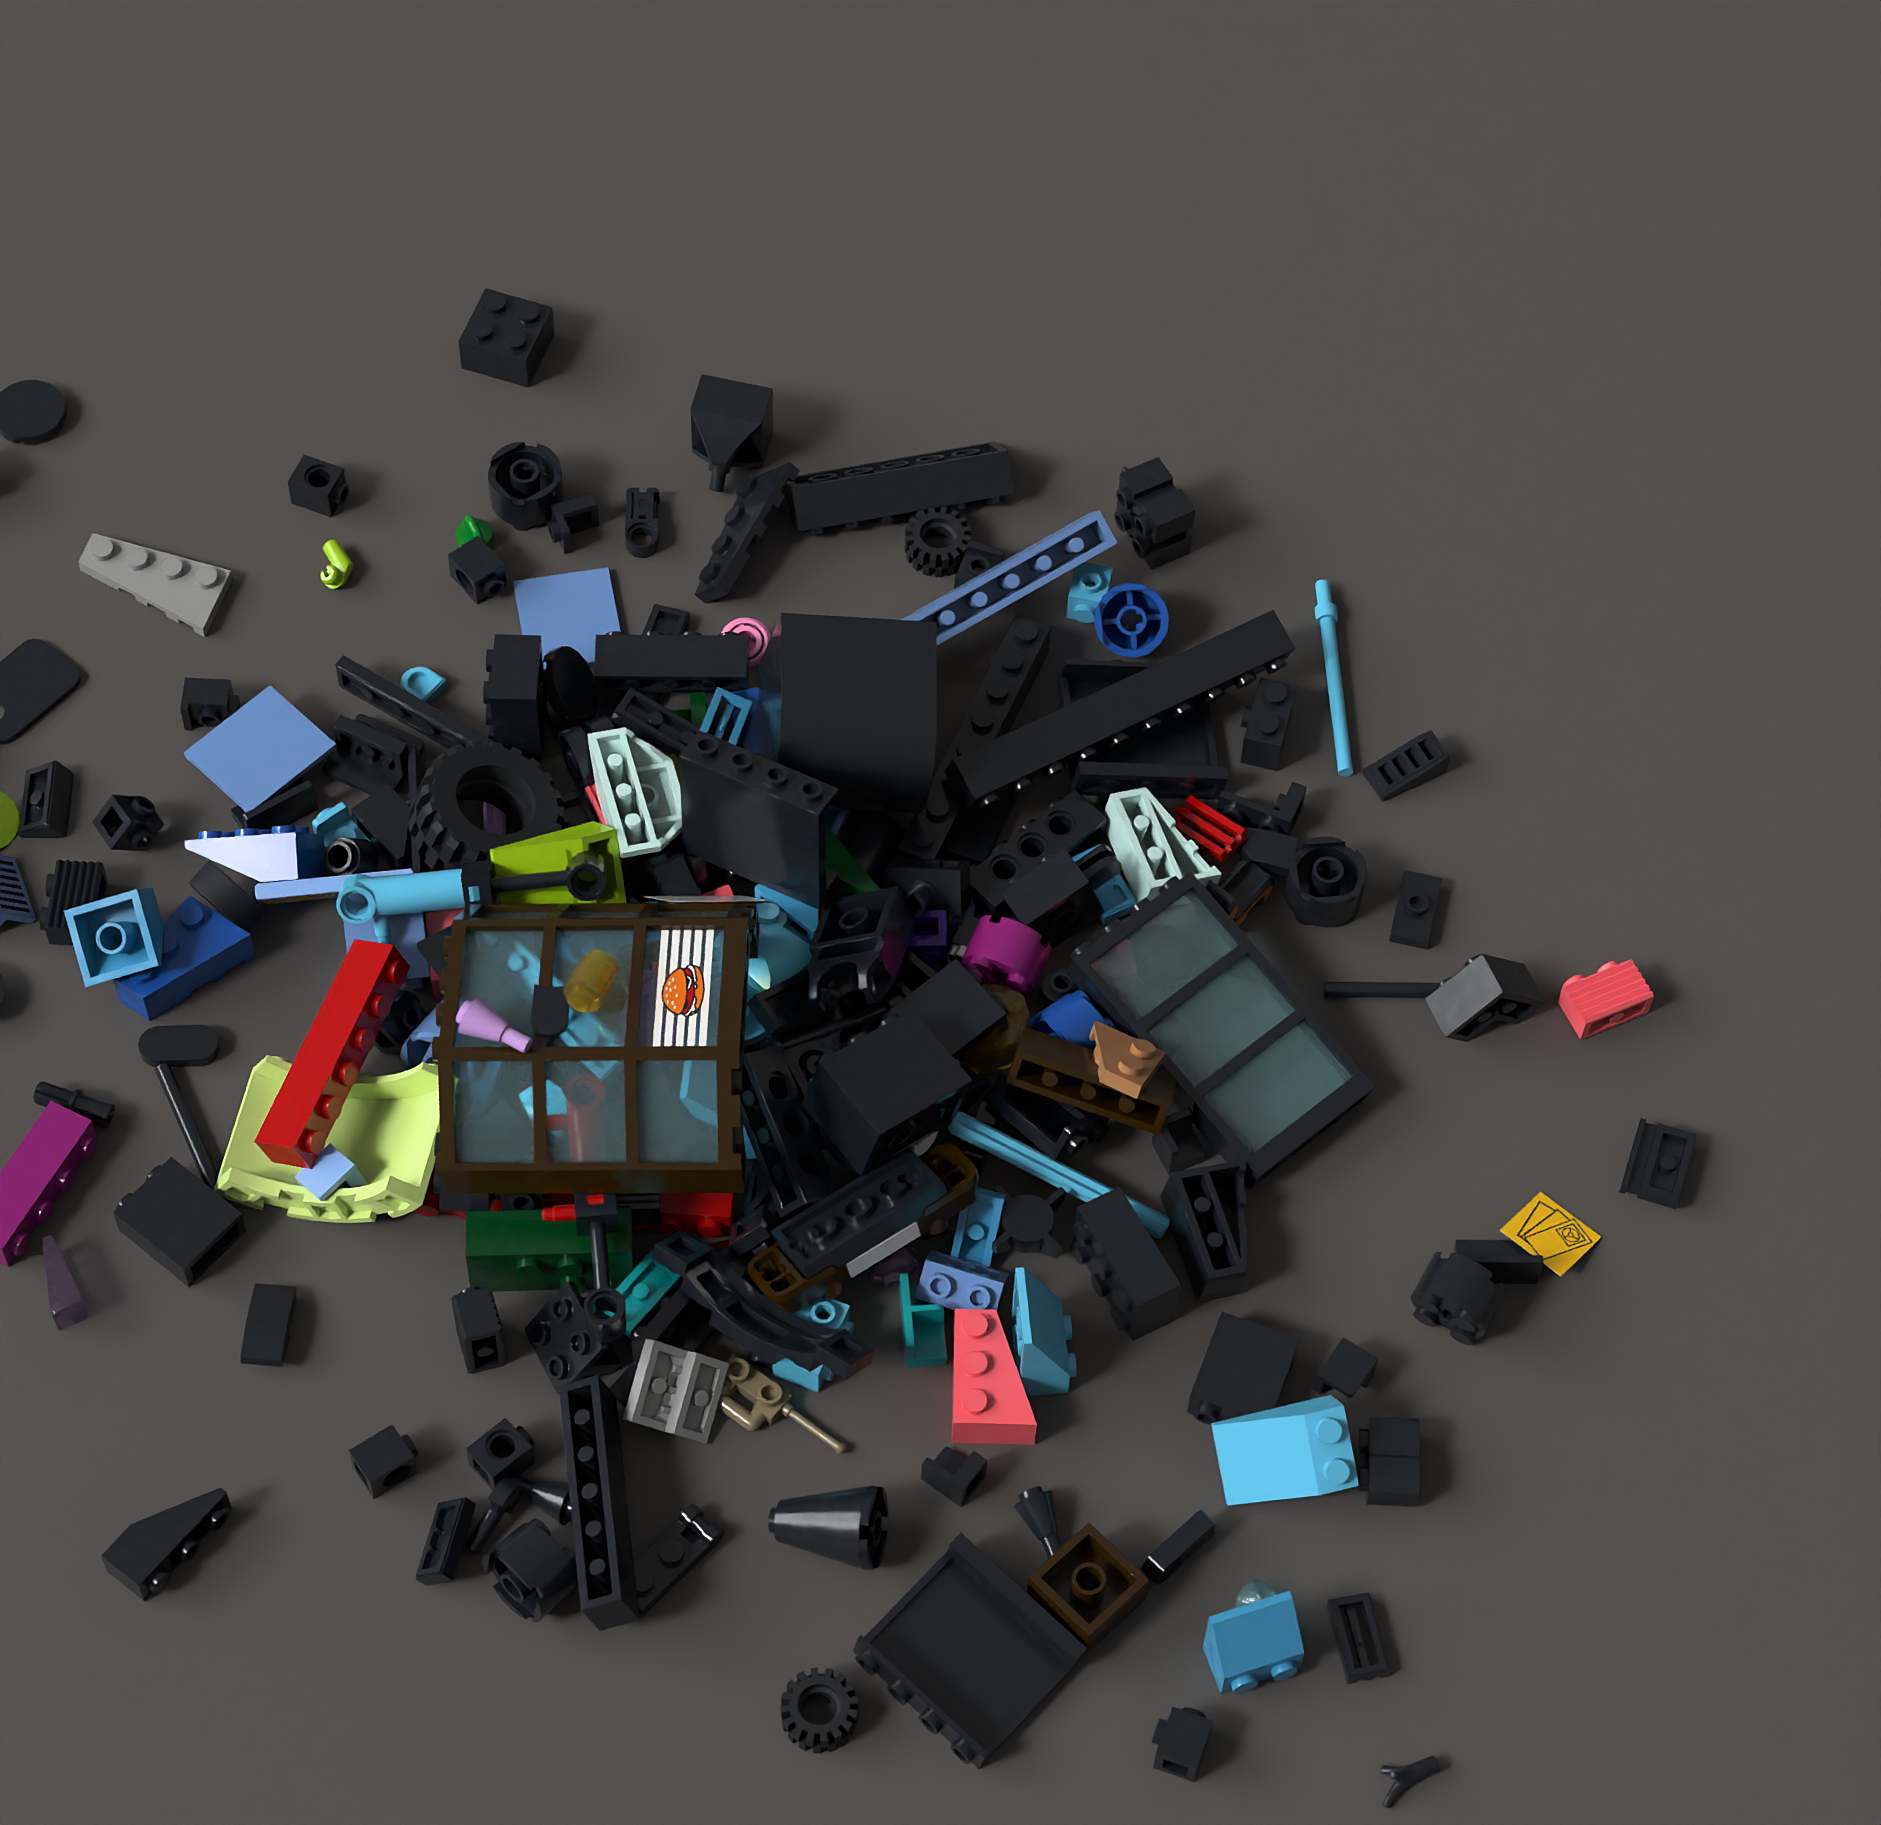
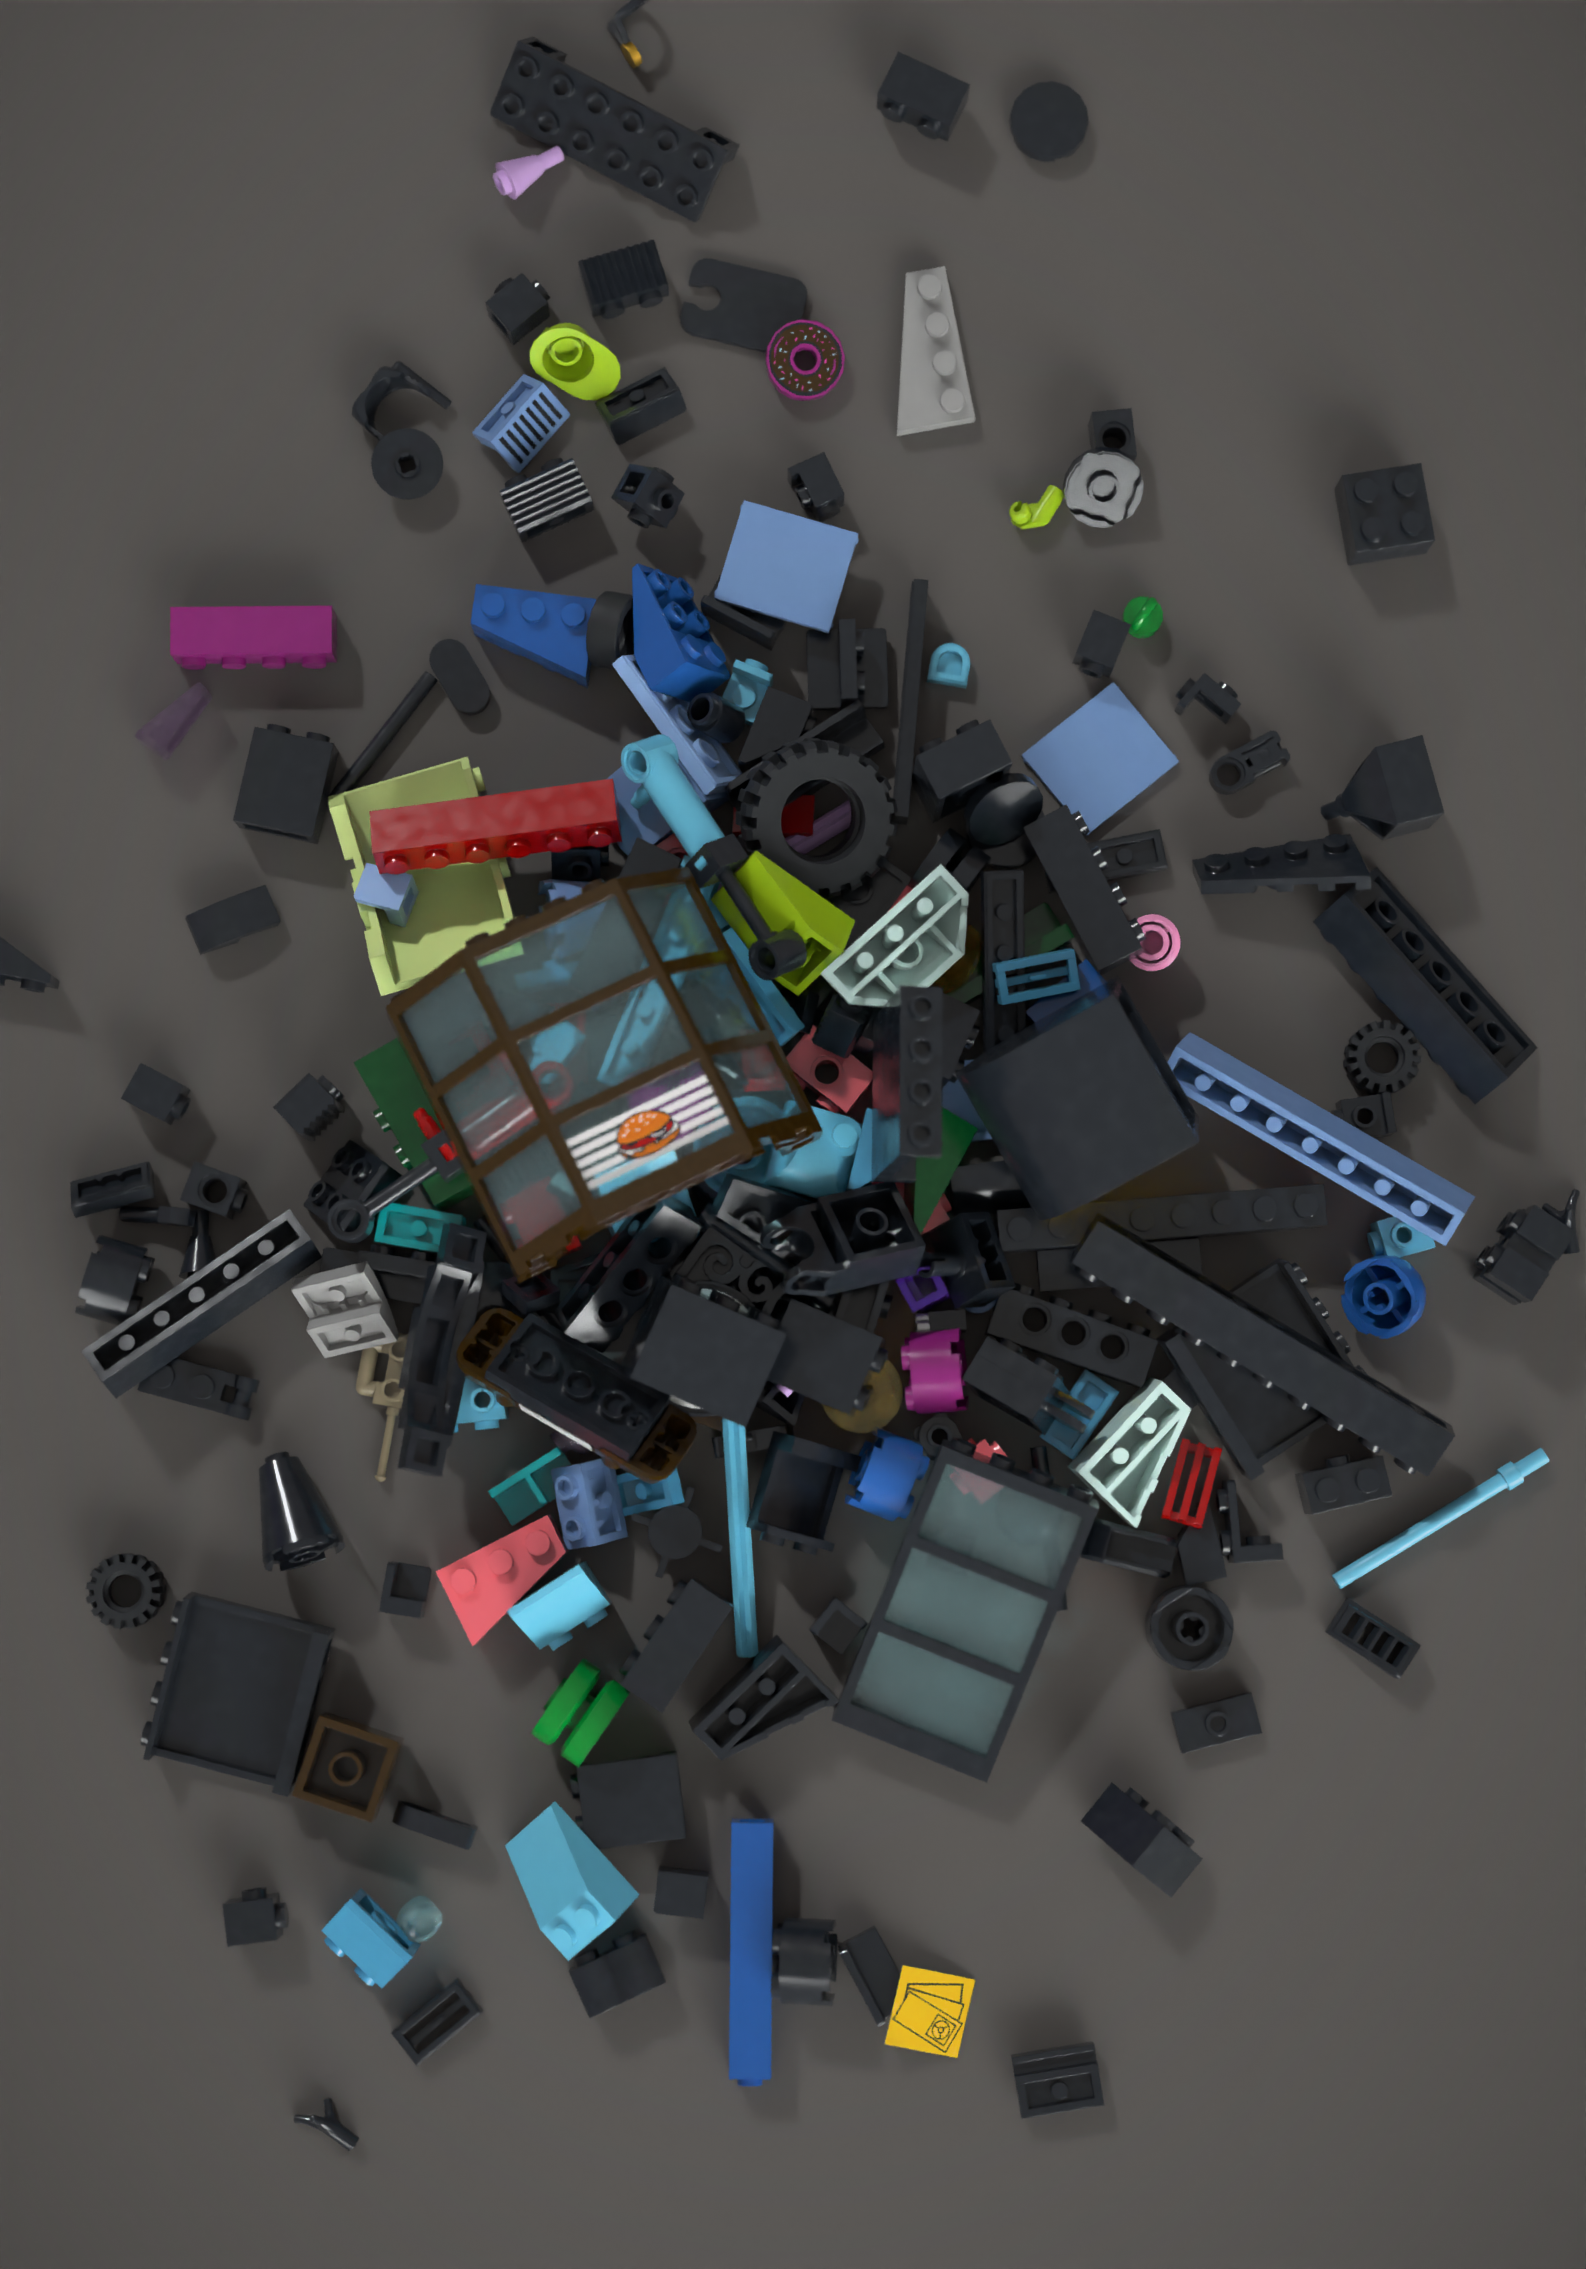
camera: 60 degrees right, 25 degrees up
(75, 1101) = (351, 623): black axle -> none
(96, 647) = (810, 337): none -> tile
(117, 935) = (510, 564): dark azure slope -> none
(352, 506) = (1103, 487): none -> tile
(483, 1022) = (505, 976): lavender cone -> none
(525, 484) = (1241, 636): black brick -> none
(549, 1011) = (558, 1024): black piece -> none
(591, 981) = (597, 1048): clear yellow brick -> none
(705, 898) = (828, 1071): white sticker -> none
(1038, 1513) = (405, 1683): black cone -> none
(1071, 1076) = (830, 1525): dark brown brick -> none
(1124, 1060) = (860, 1549): medium nougat wing -> none
(1143, 1367) = (579, 1711): none -> green wheel
(1379, 989) = (1110, 1733): black bar -> none
(1425, 1343) = (751, 1951): none -> blue brick
(1605, 998) = (1209, 1951): coral brick -> none

